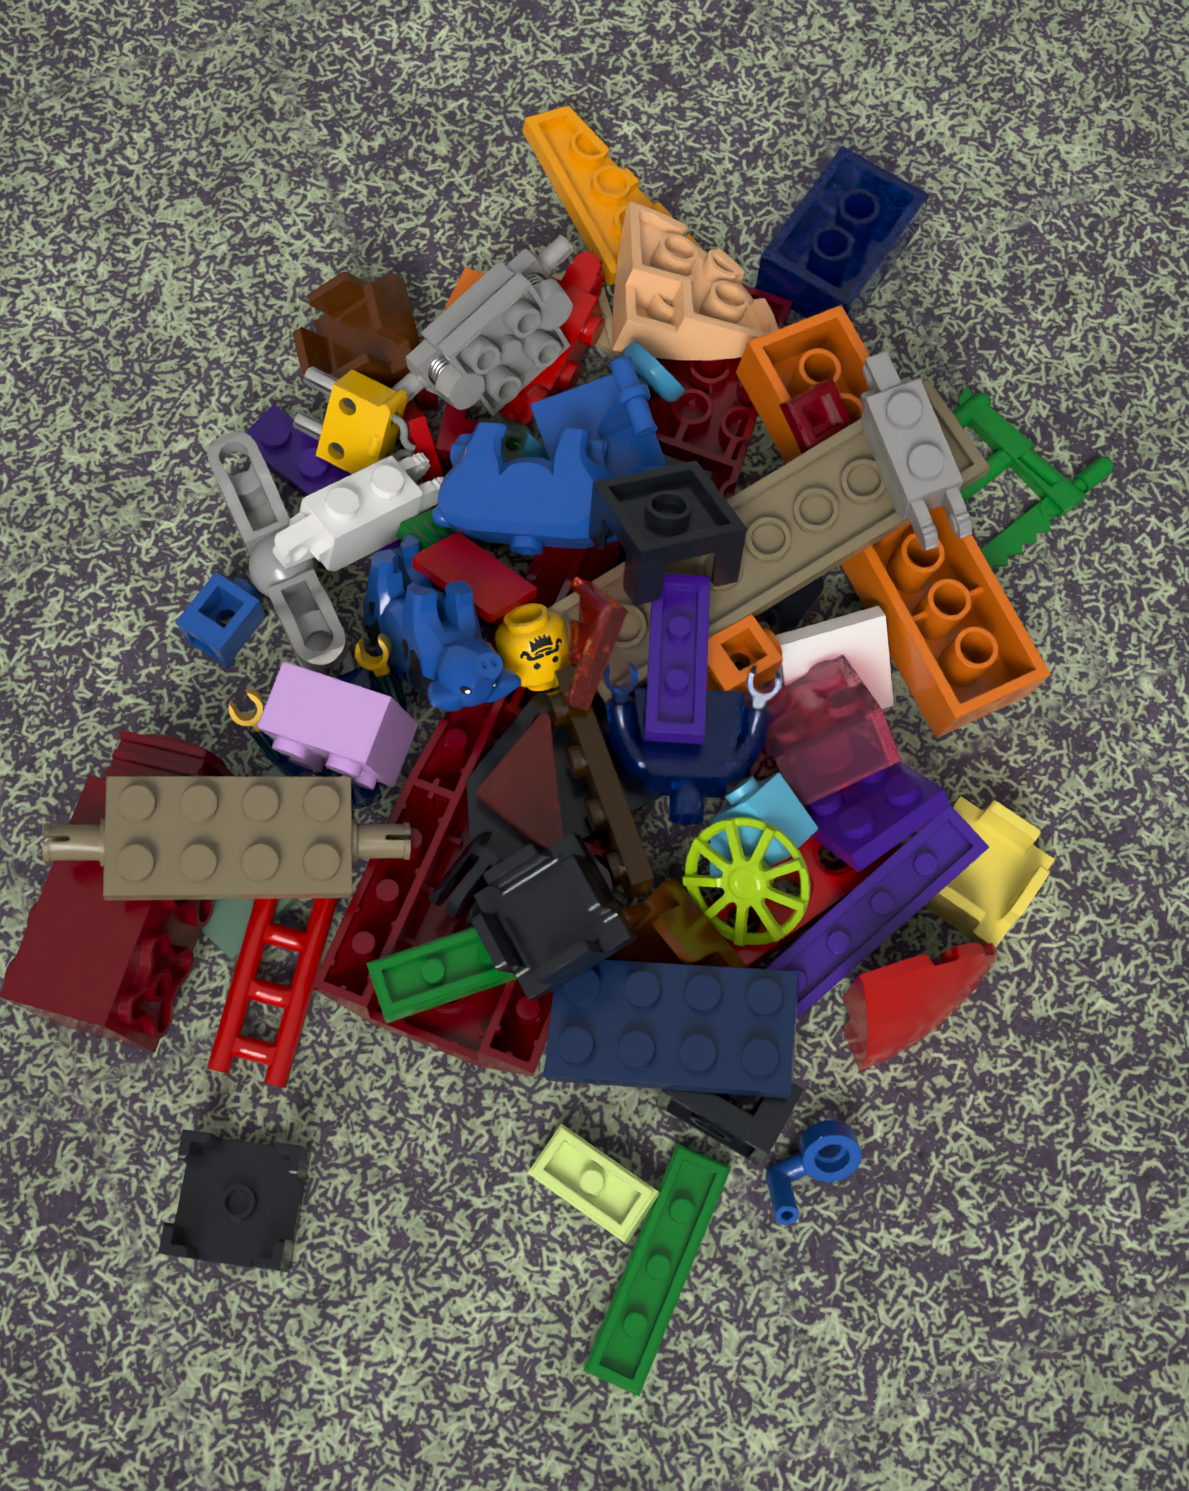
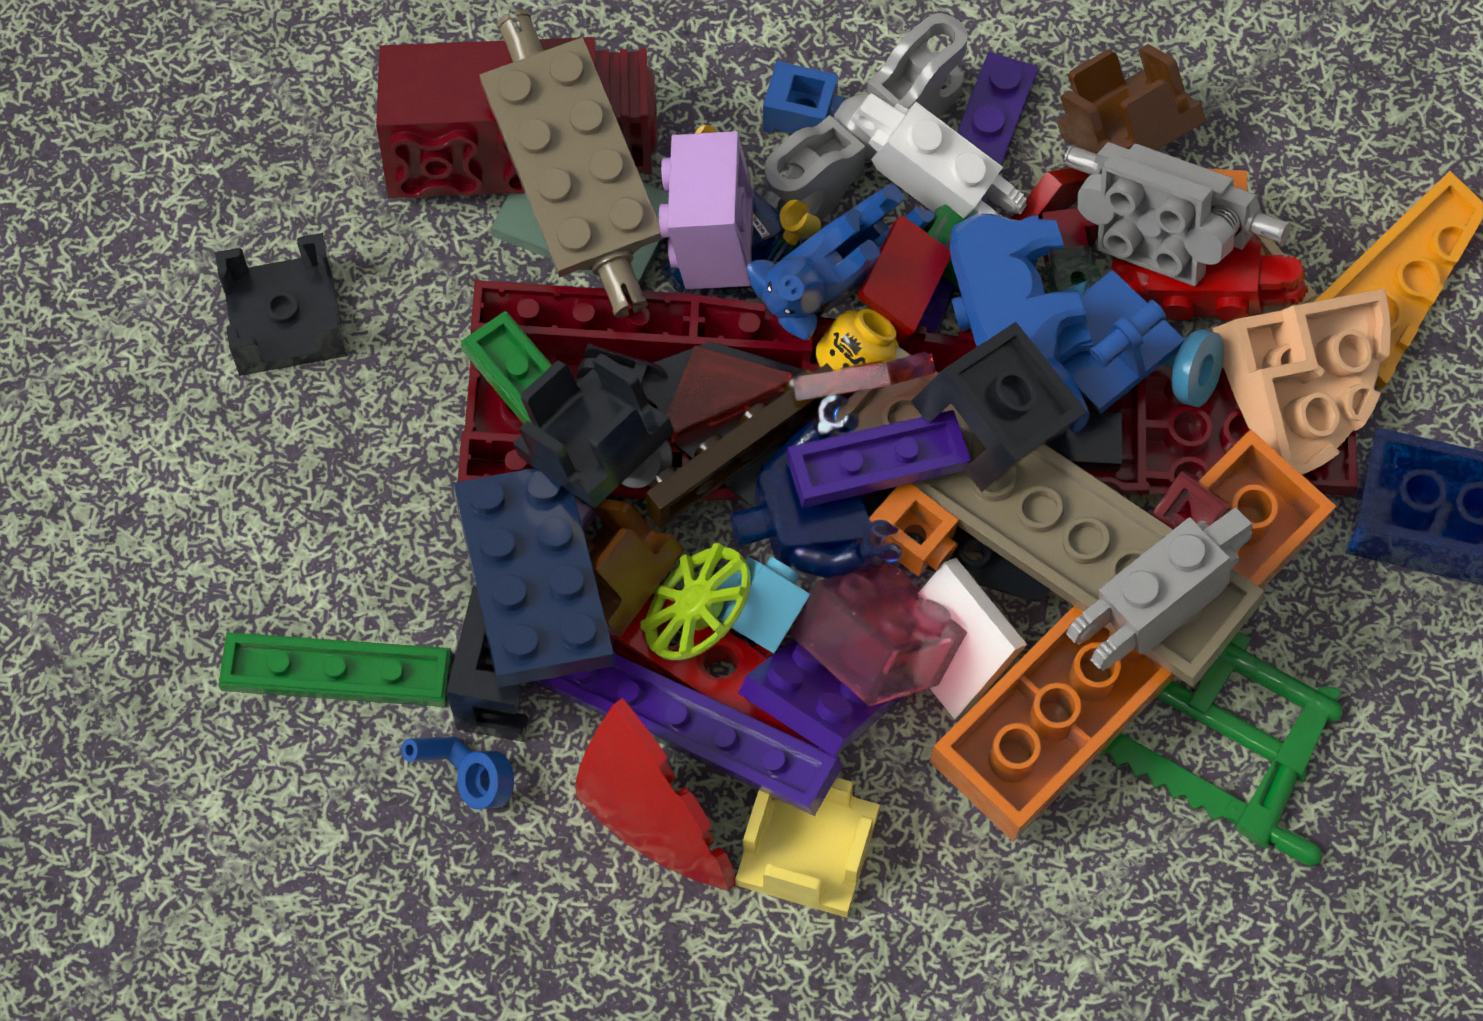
camera: 75 degrees right, 5 degrees down
(293, 998) = (469, 248): red bar -> none
(358, 422) = (1034, 132): yellow piece -> none
(593, 1183) = (390, 587): yellowish green plate -> none

